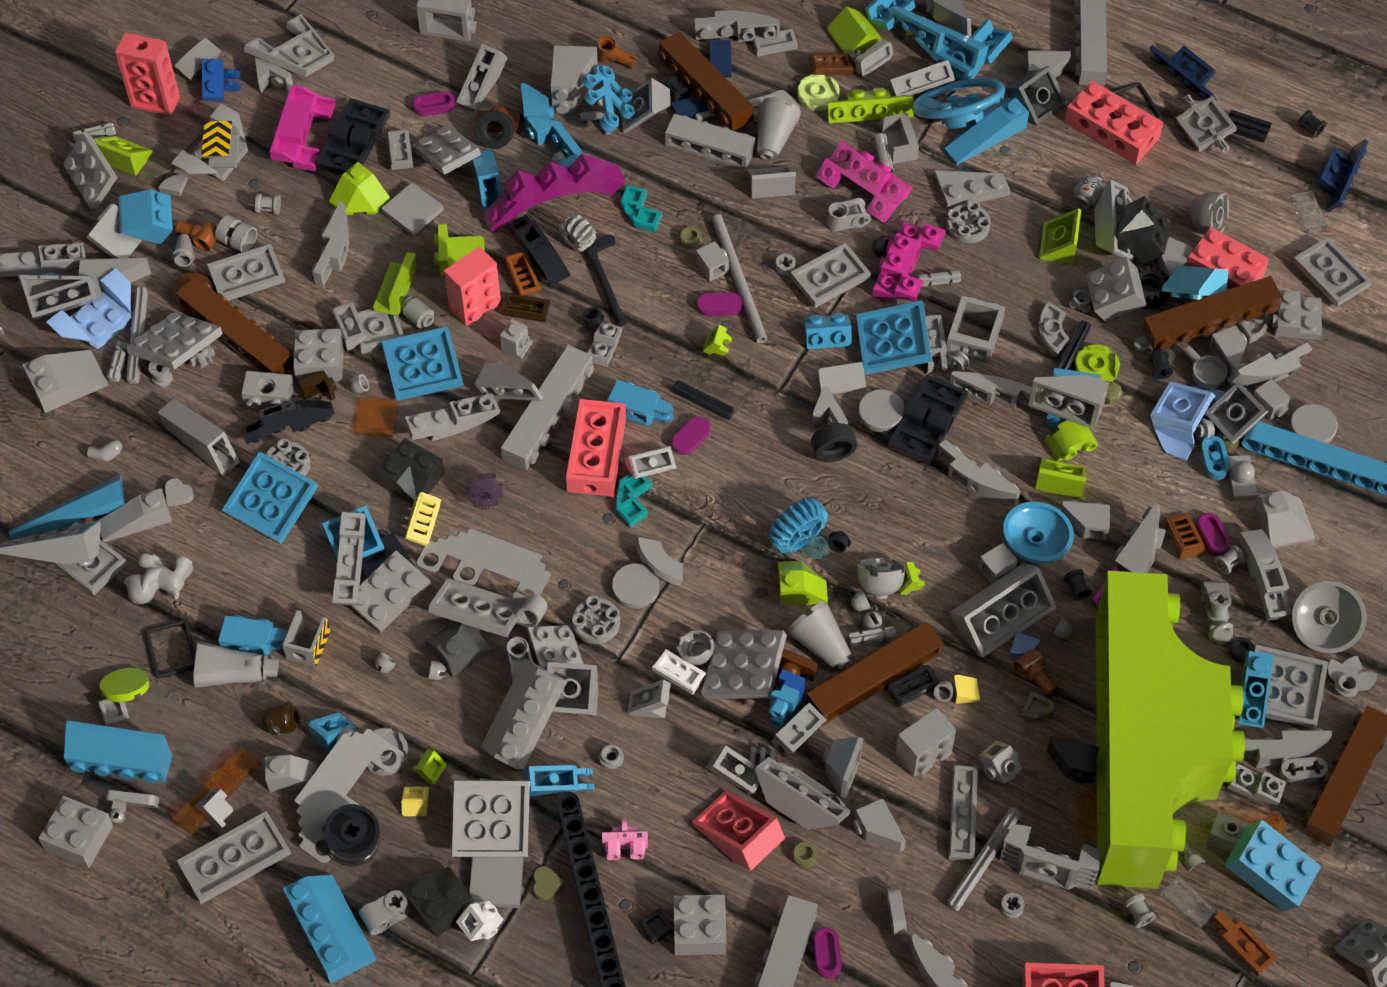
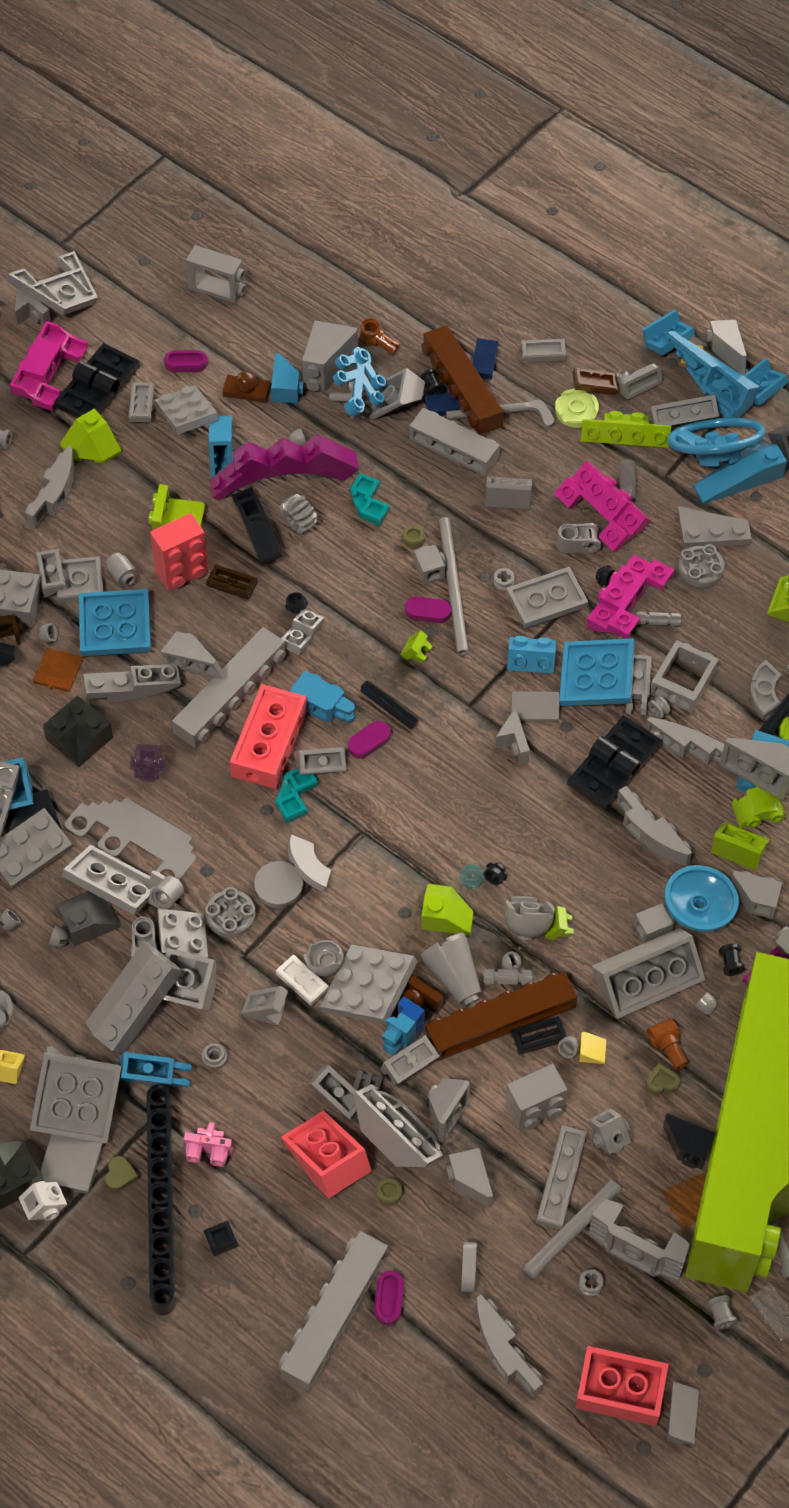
camera: 10 degrees right, 0 degrees up
(395, 285) = (106, 539): lime panel -> none
(412, 209) = (140, 464): light grey tile -> none
(428, 505) = (85, 766): light yellow slope -> none
(430, 766) = (30, 1034): lime tile -> none
(482, 76) = (239, 341): light grey slope -> none
(482, 134) = (227, 402): black tyre -> none
(515, 339) = (212, 612): light grey brick -> none
(518, 258) = (232, 531): dark orange slope -> none
(544, 130) = (290, 405): dark azure slope -> none
(592, 253) = (319, 530): black piece -> none
(700, 925) = (264, 1245): light grey brick -> none
(737, 23) = (507, 325): light grey slope -> none
(775, 125) = (523, 436): light grey cone -> none
(797, 525) = (454, 850): dark azure gear -> none
(834, 442) = (511, 770): black tyre -> none
(853, 31) = (625, 350): lime slope -> none
(860, 602) = (503, 939): light grey hinge -> none
(881, 410) = (568, 745): light grey tile -> none
(900, 138) = (649, 467): light grey panel -> none
(1023, 644) = (662, 1011): medium blue tile -> none

